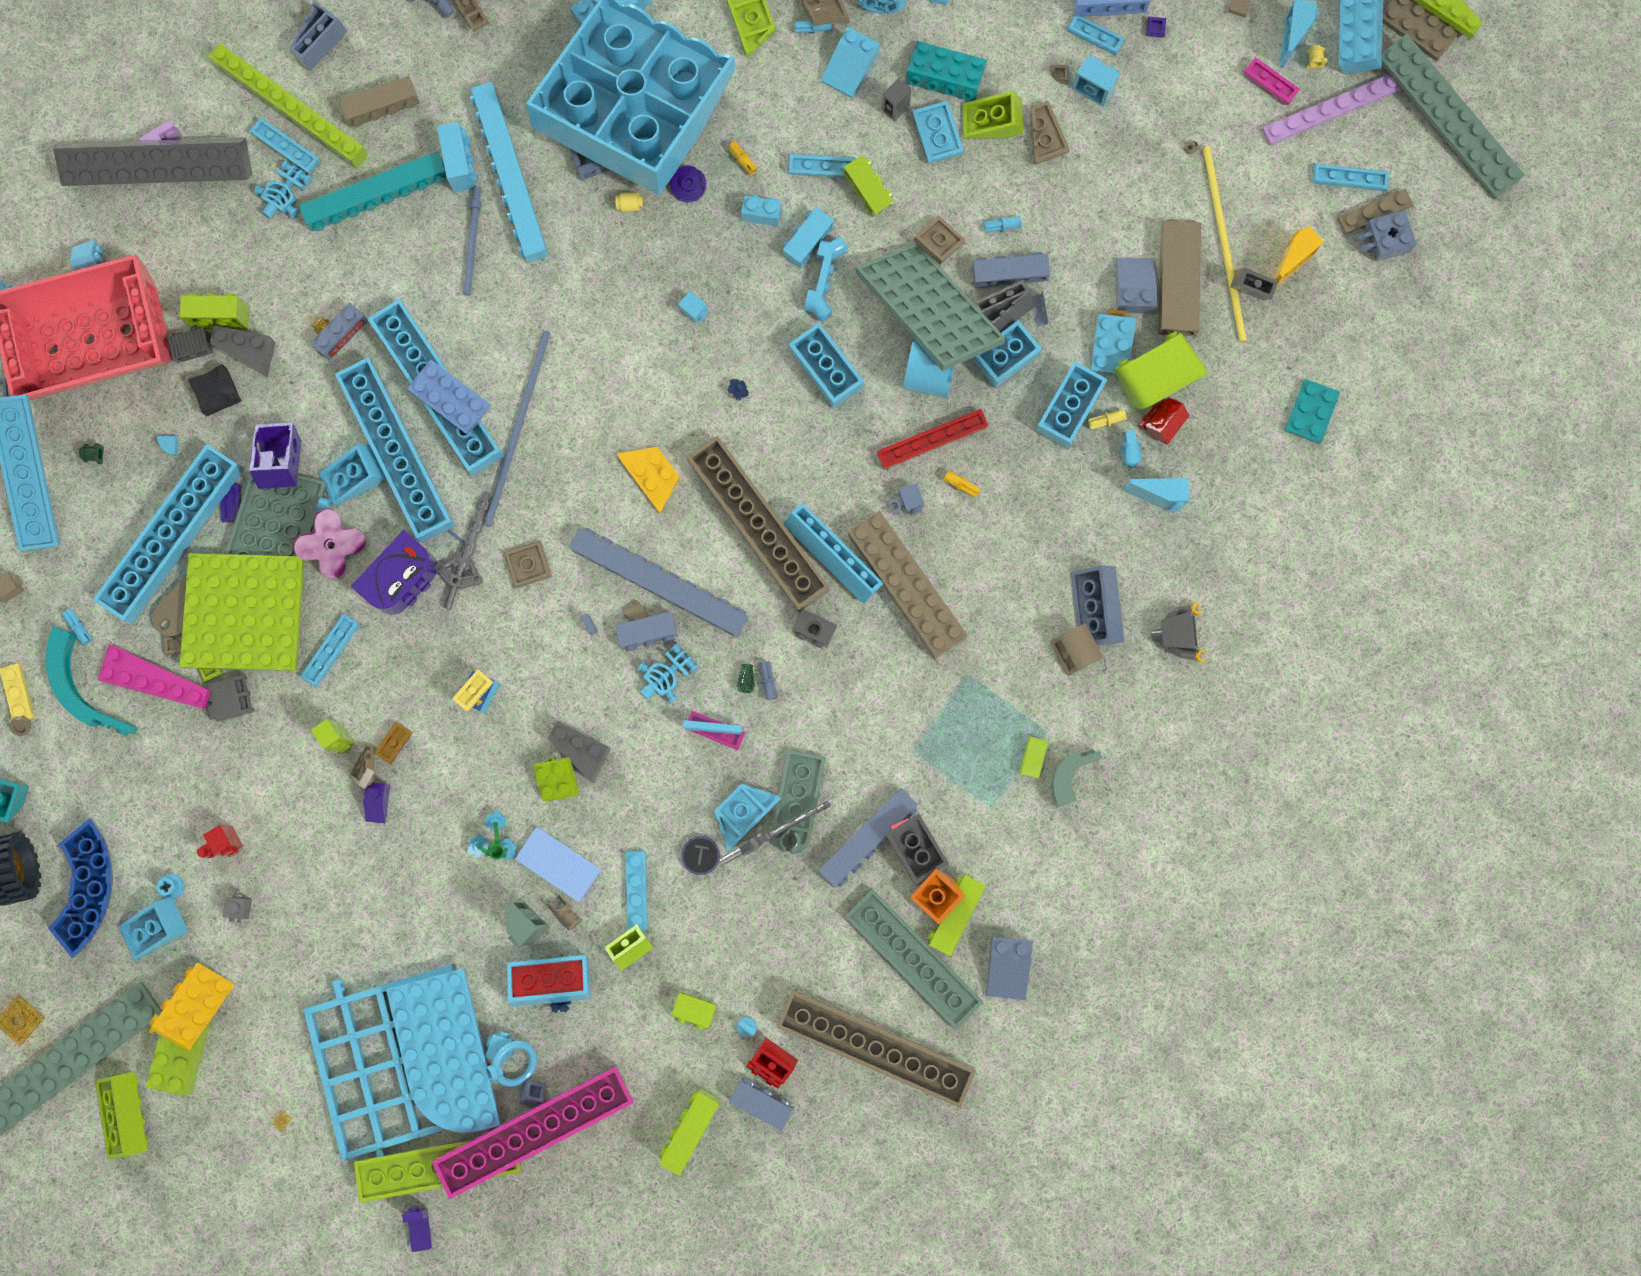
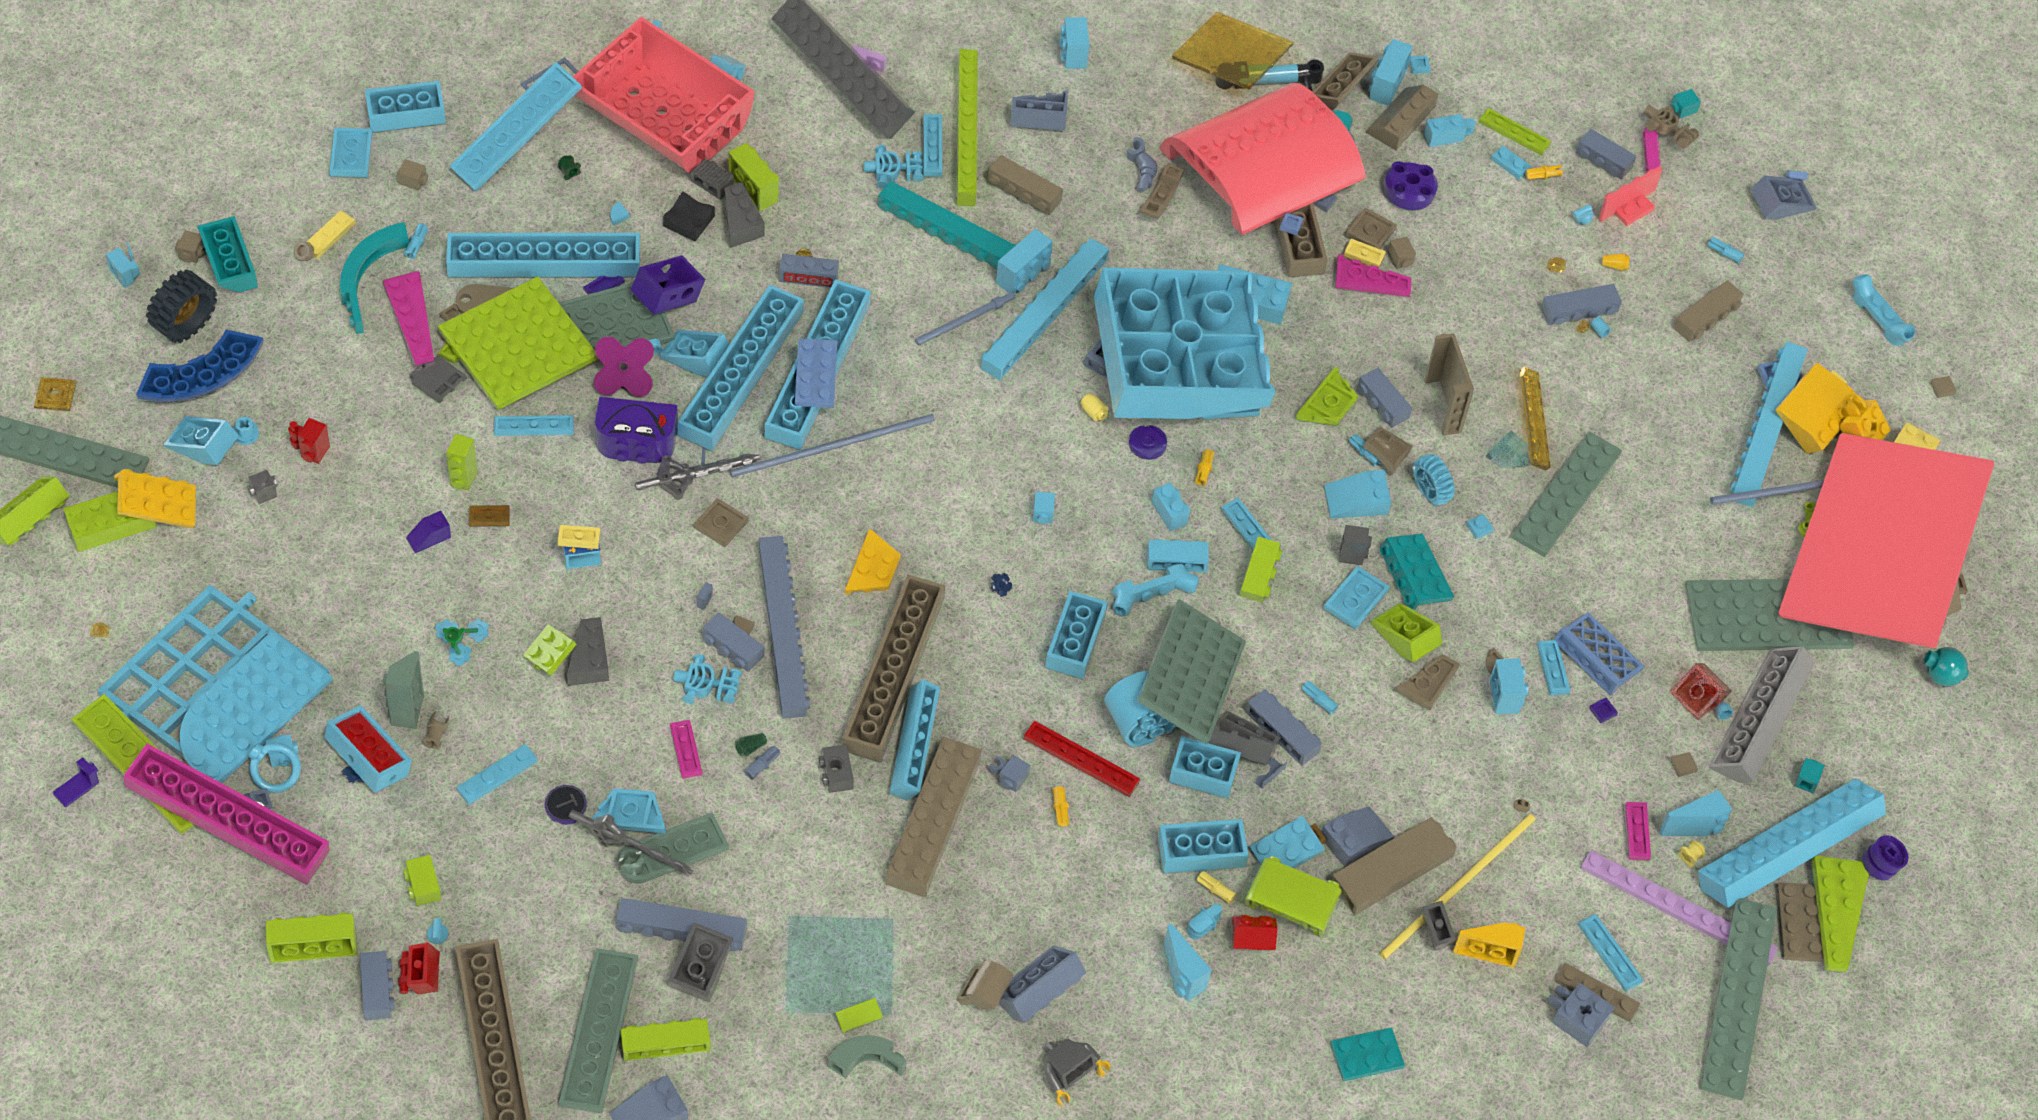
camera: 45 degrees right, 25 degrees down
(364, 767) = (446, 502): dark tan wing -> none
(558, 864) = (475, 701): light blue tile -> none
(628, 947) = (442, 793): lime brick -> none
(712, 727) = (686, 739): medium azure tile -> none
(938, 895) = (671, 1005): orange slope -> none
(939, 240) = (1262, 655): dark tan plate -> none

